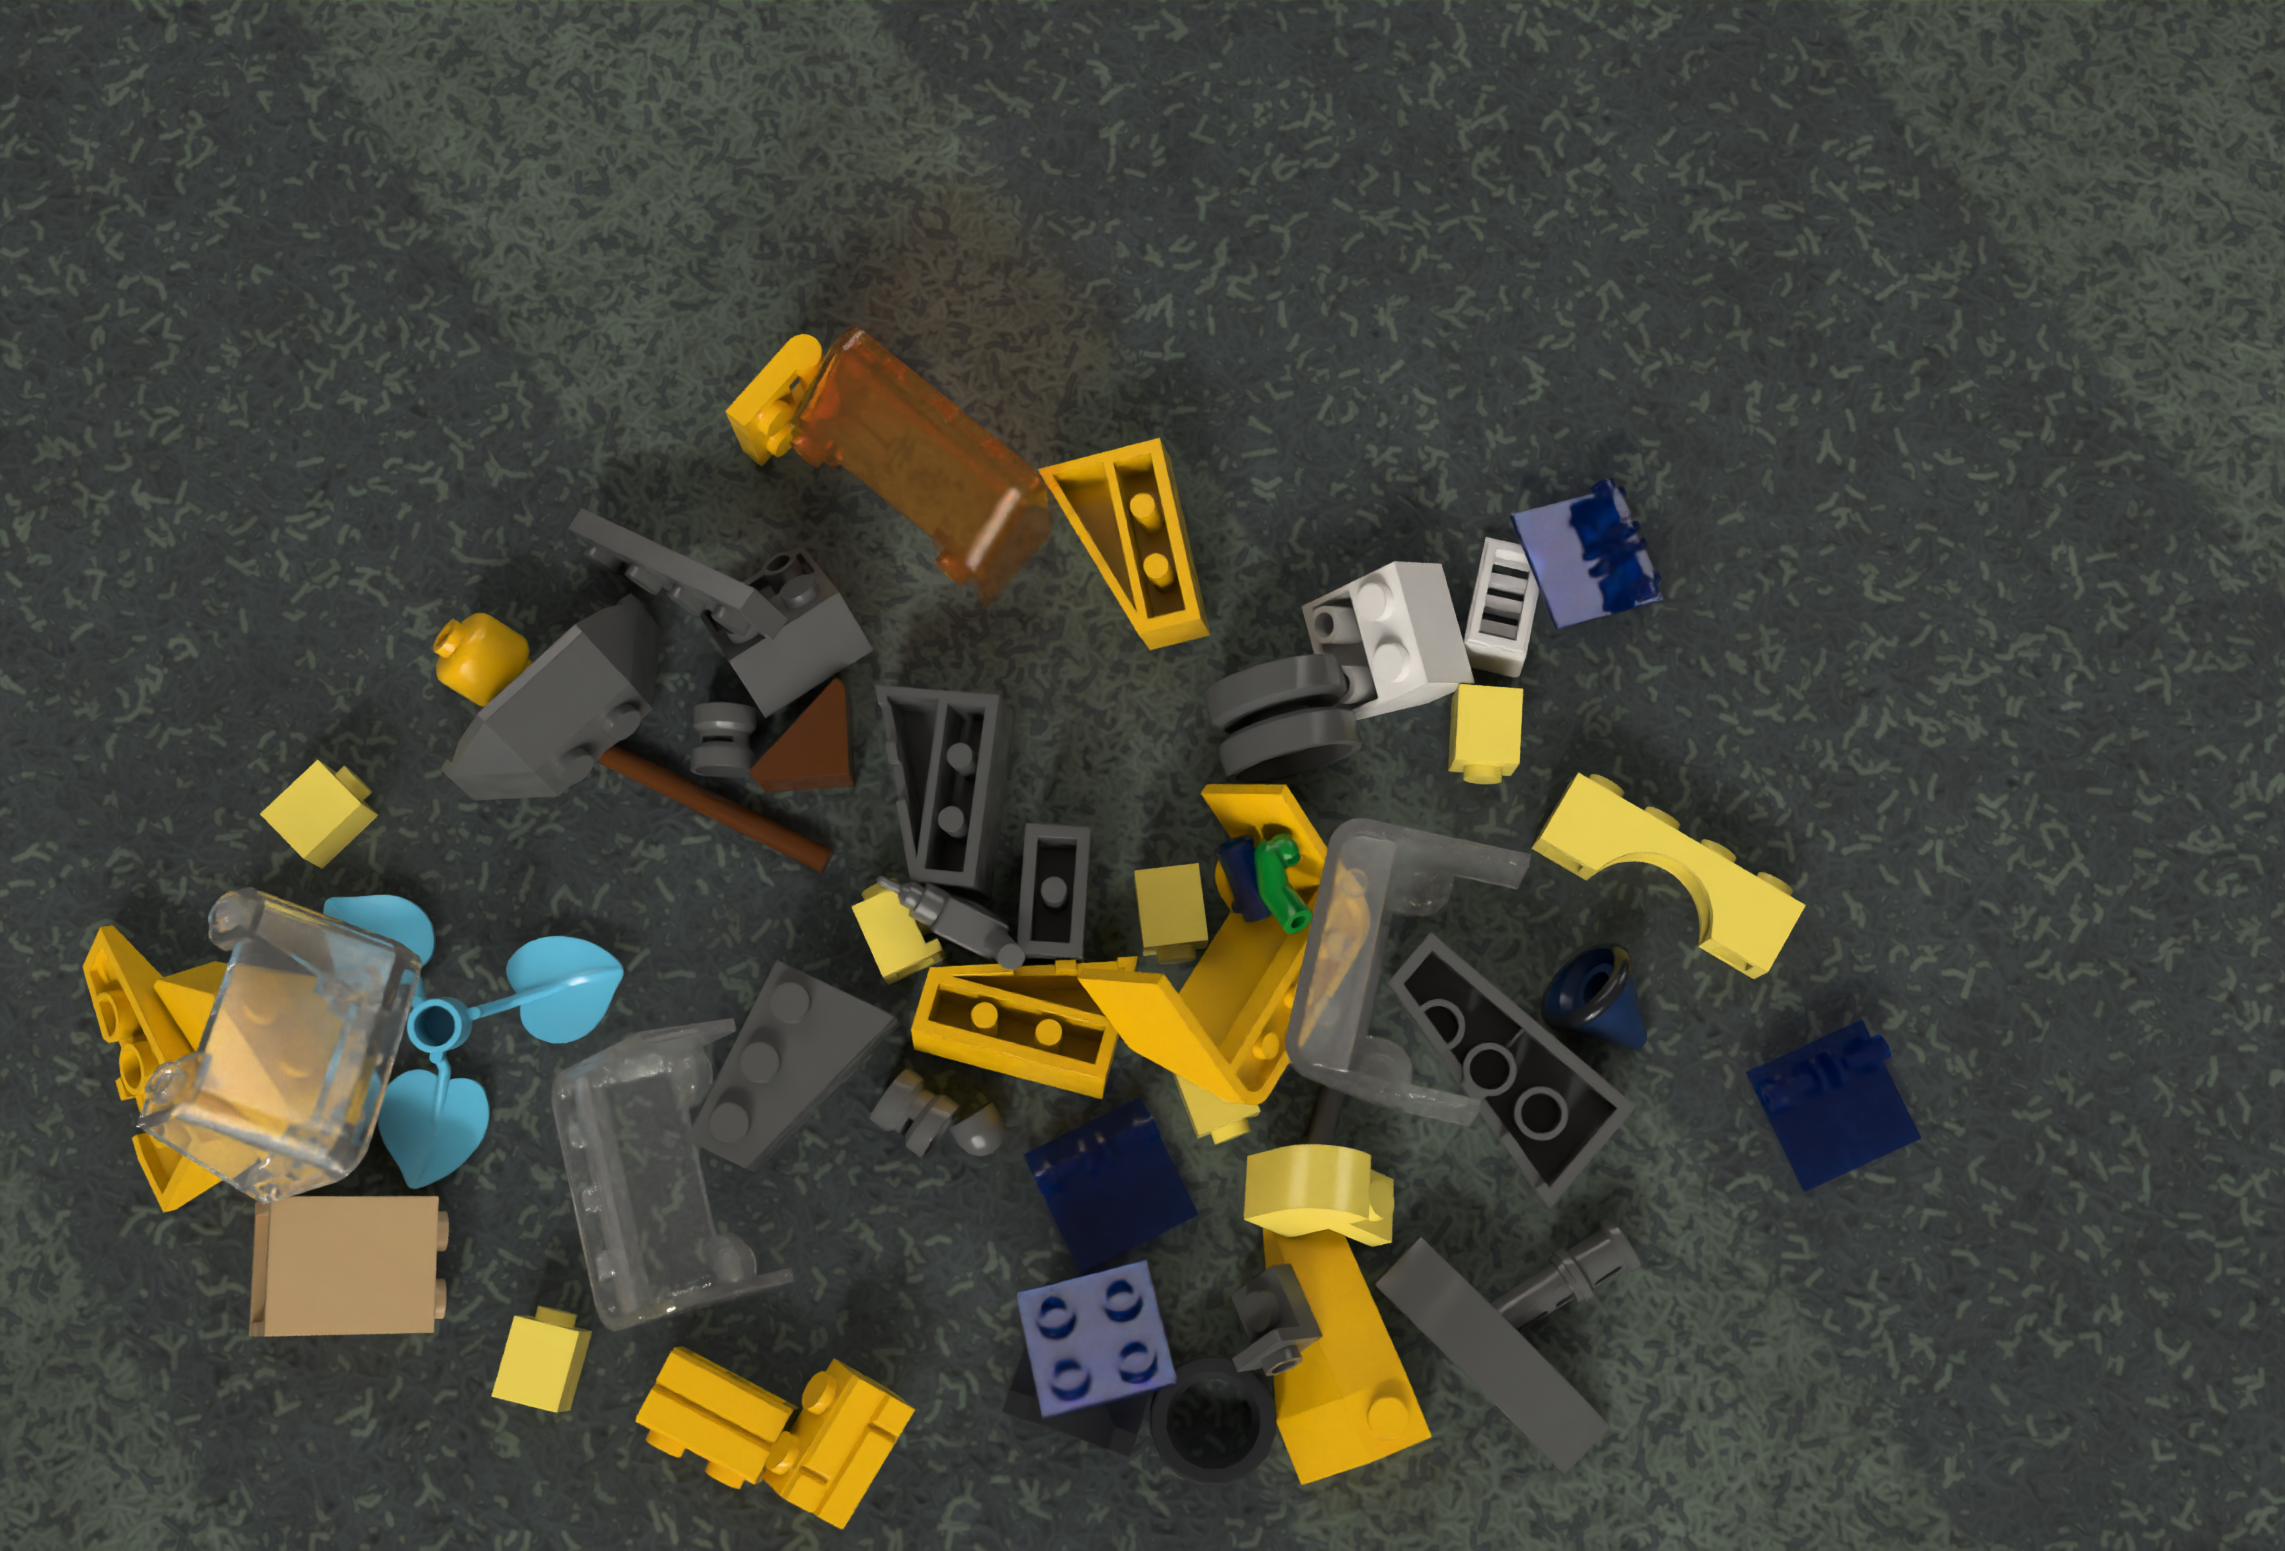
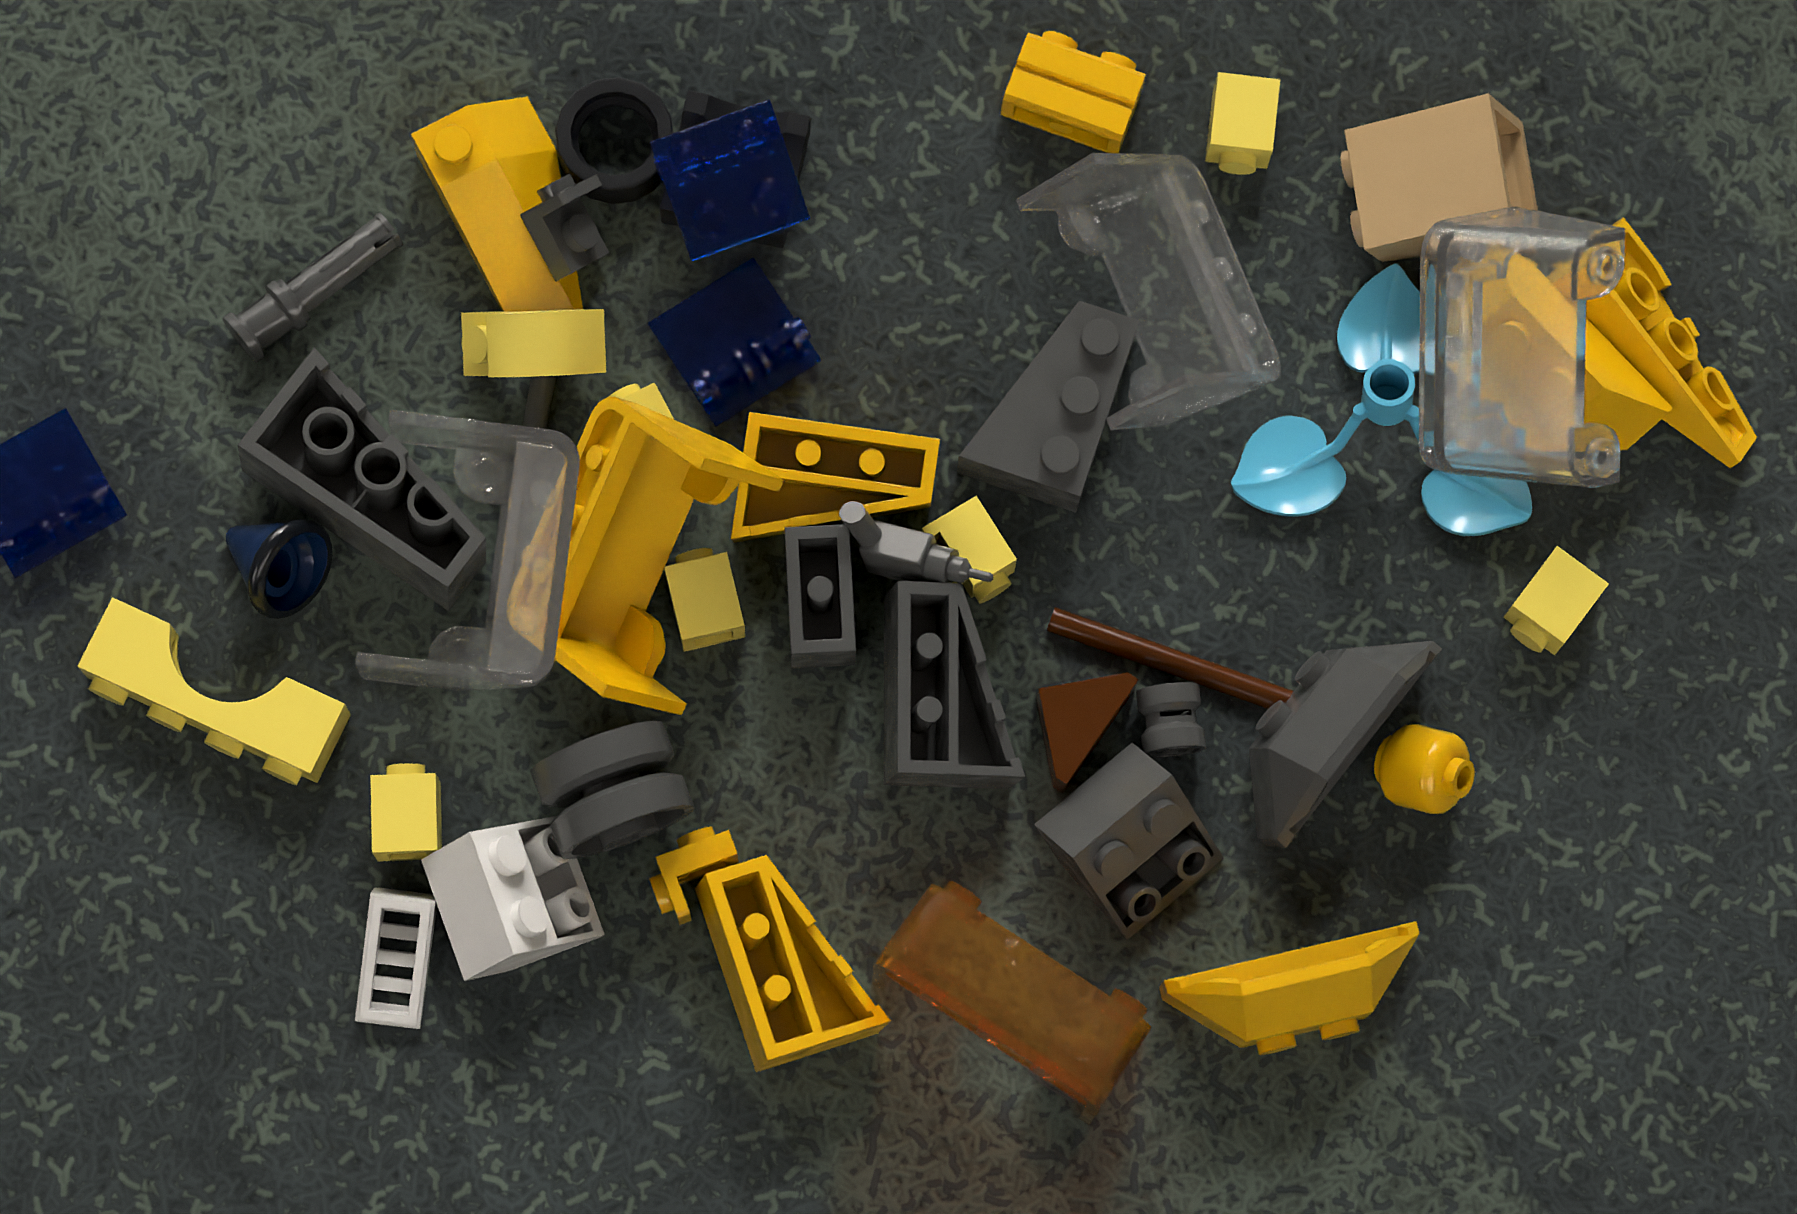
camera: 170 degrees right, 0 degrees up
(644, 471) = (1294, 990): none -> yellow wedge
(688, 581) = (1259, 870): dark grey plate -> none
(767, 403) = (1173, 1053): yellow plate -> none
(836, 1443) = (958, 78): yellow brick -> none
(914, 1112) = (929, 382): dark grey wheel -> none
(979, 1130) = (867, 377): dark grey hinge -> none
(1206, 659) = (697, 855): none -> yellow bracket
(1239, 868) = (625, 620): clear blue pin -> none
(1273, 886) = (604, 613): green arm -> none
(1492, 1354) = (362, 223): dark grey slope -> none
(1587, 556) = (313, 1011): clear blue hinge -> none

